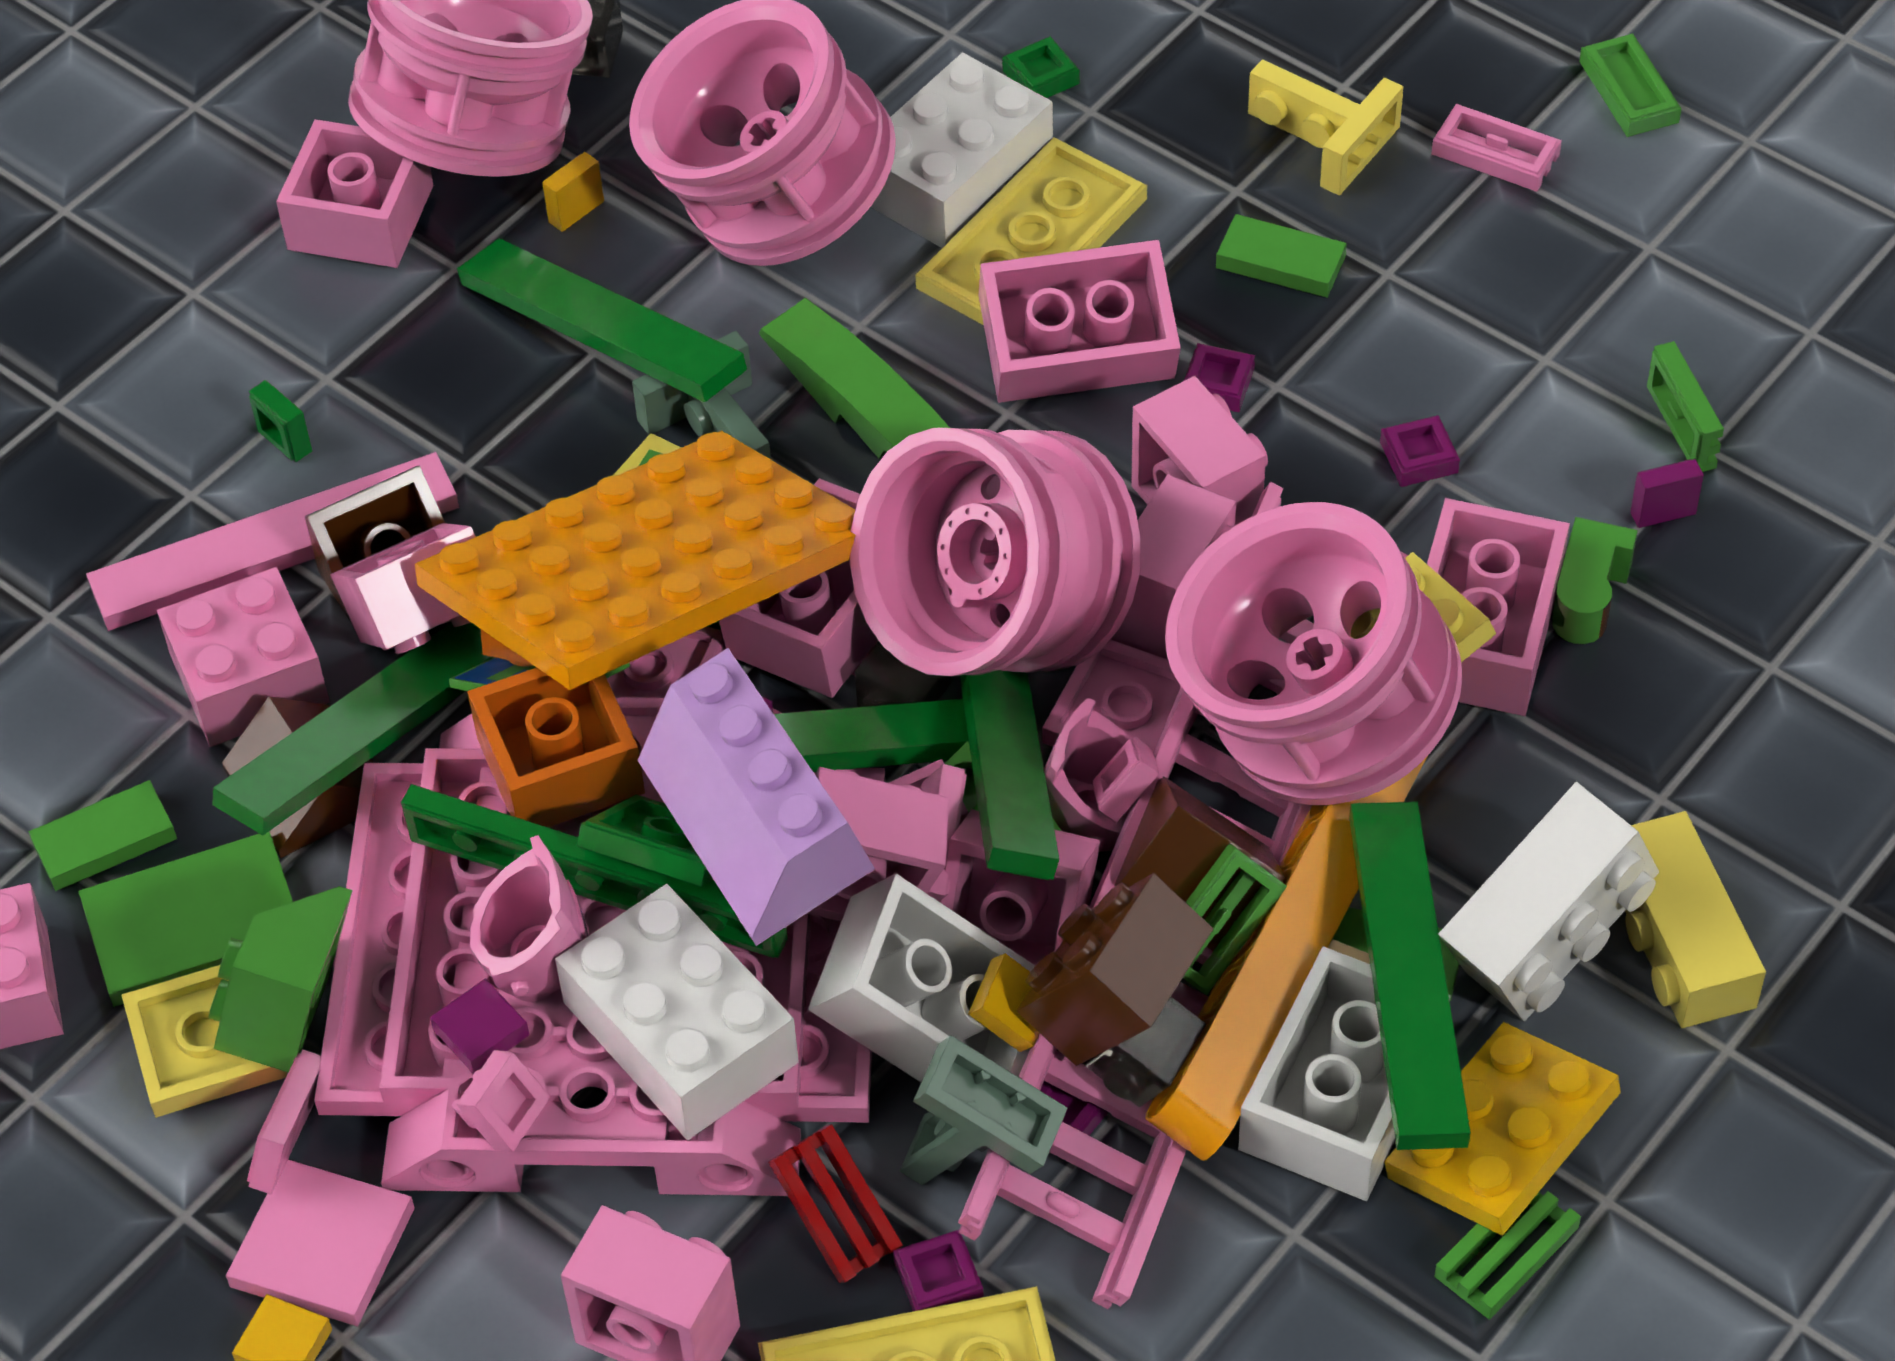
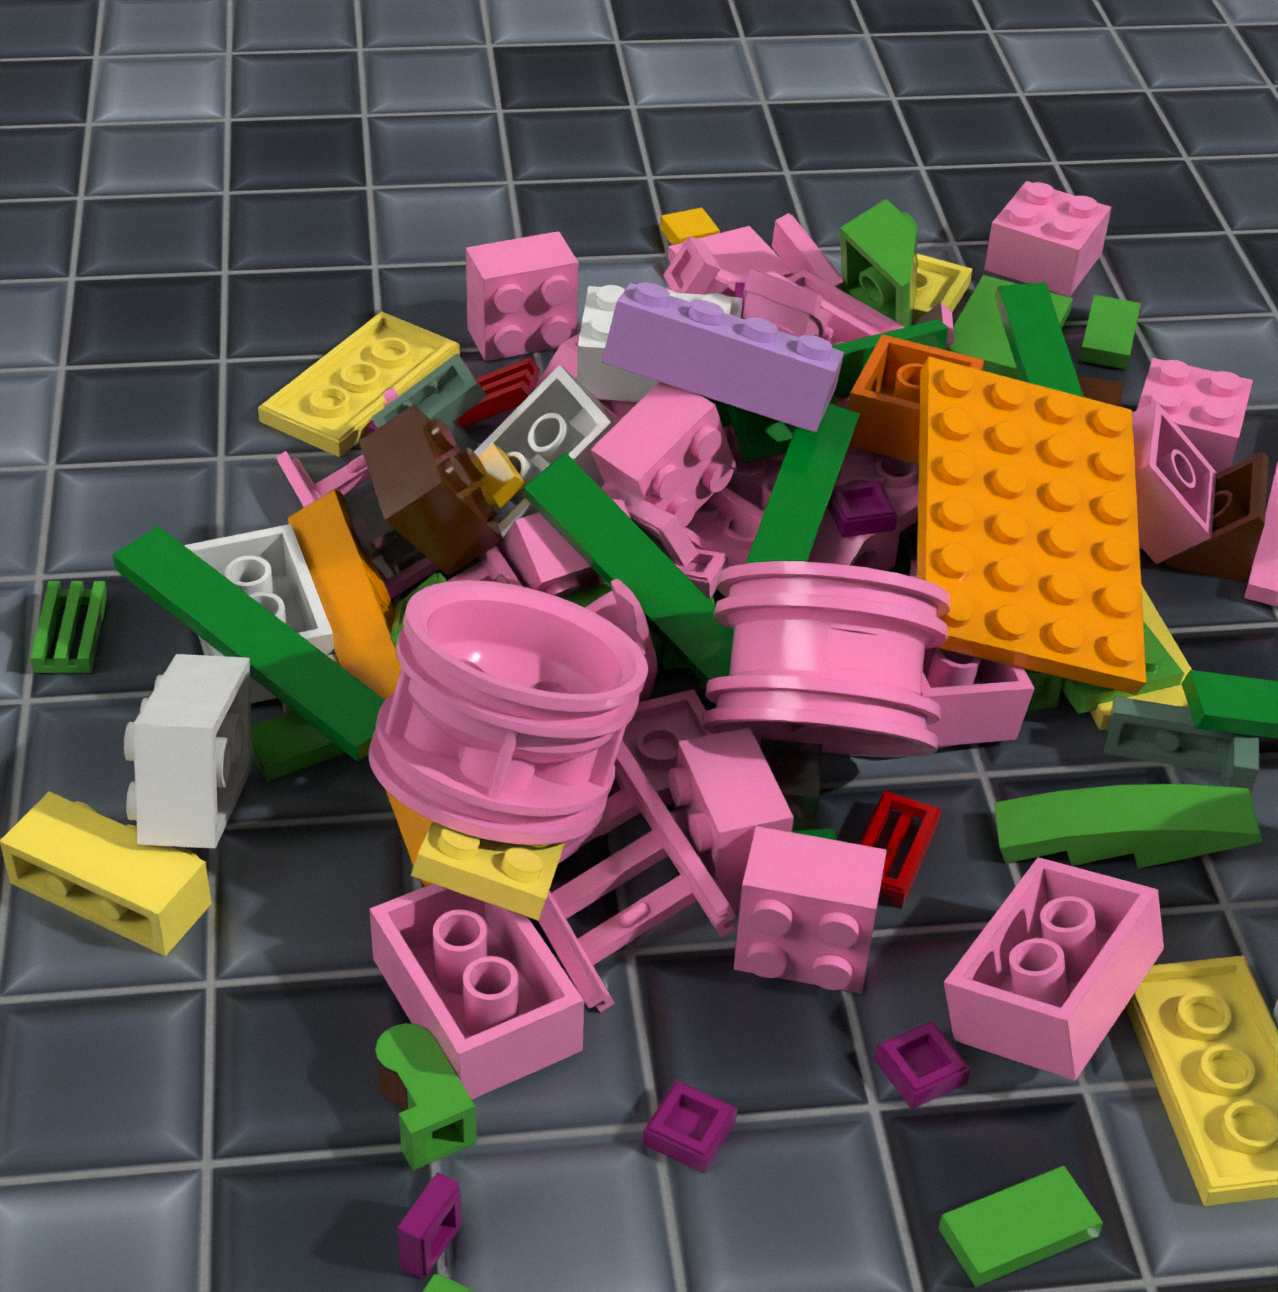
camera: 130 degrees right, 10 degrees down
(1524, 1117) = (115, 664): yellow plate -> none

